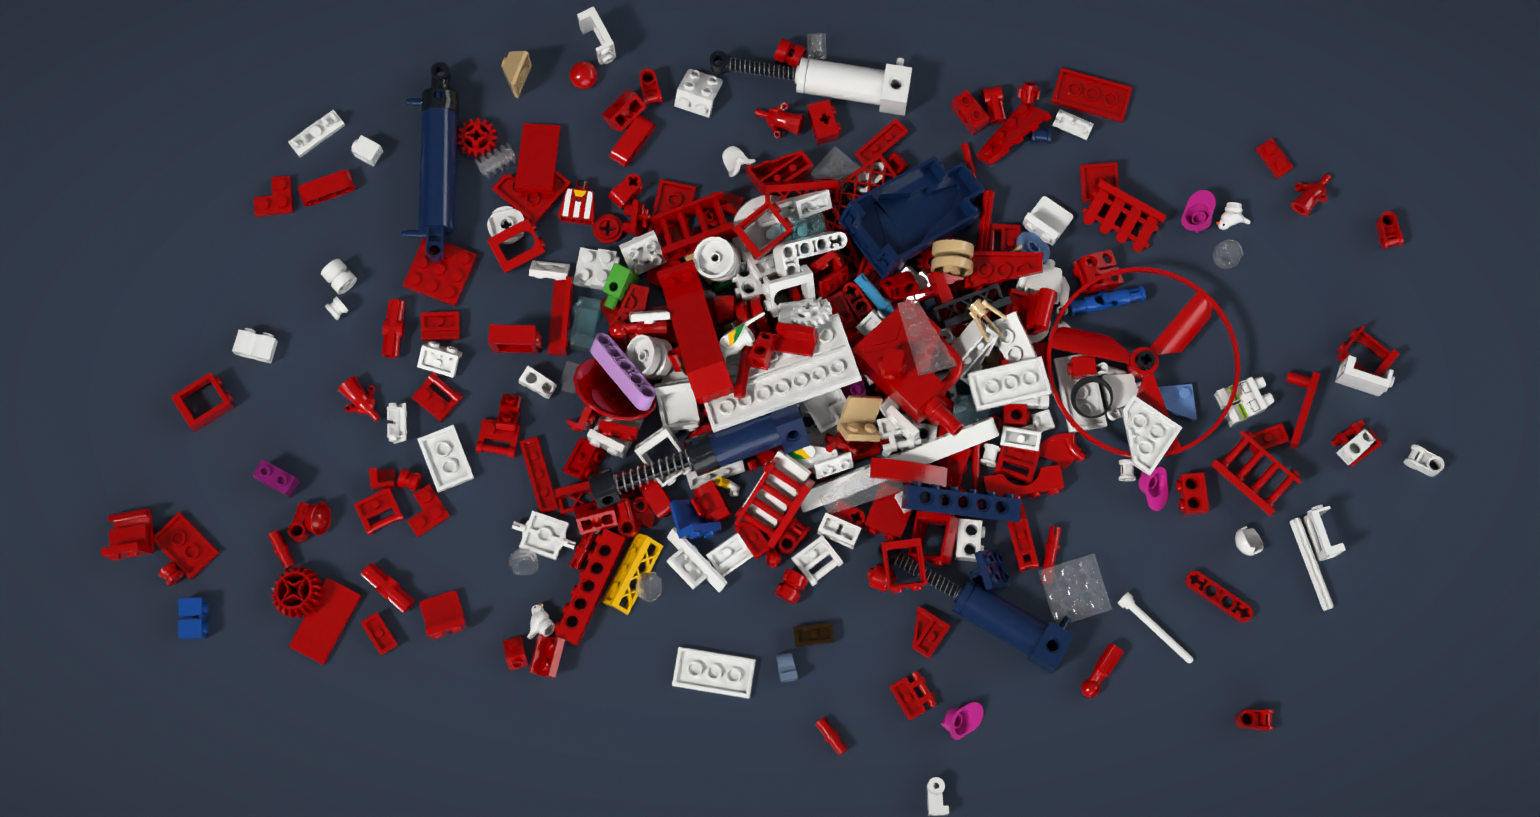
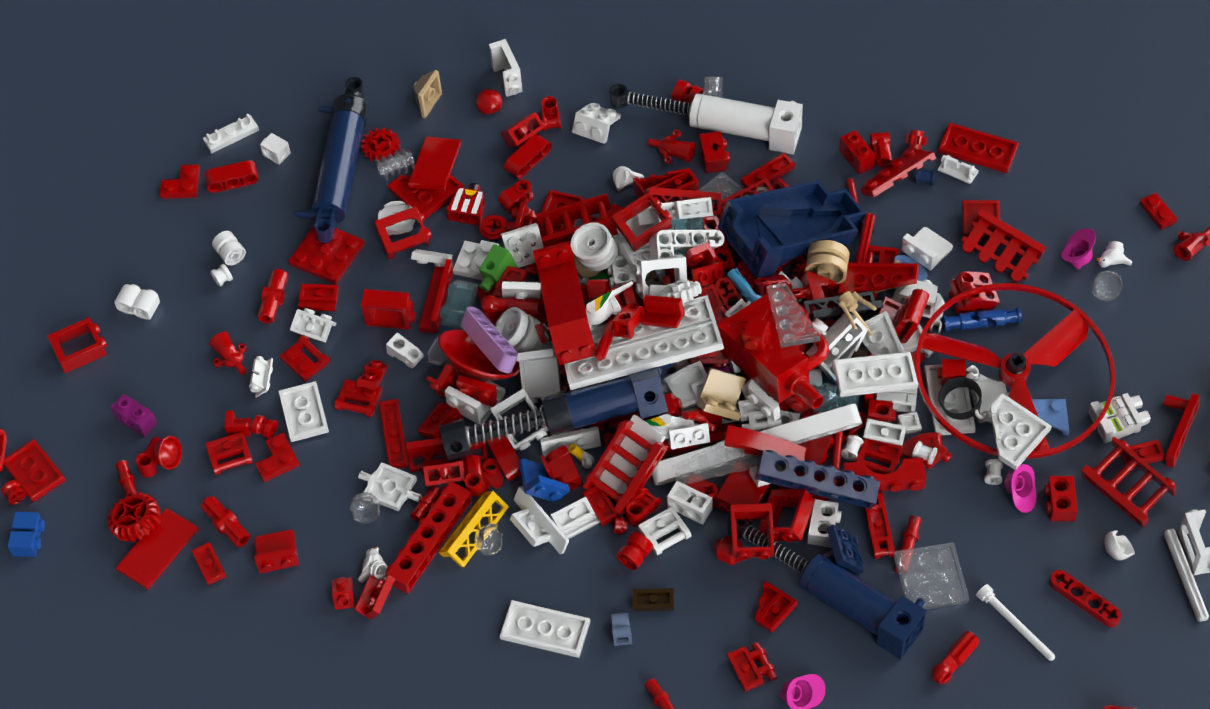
camera: 10 degrees right, 20 degrees down
(814, 432) = (673, 404): none -> red plate
(951, 336) = (820, 326): none -> white plate
(1060, 456) = (924, 452): none -> white bush

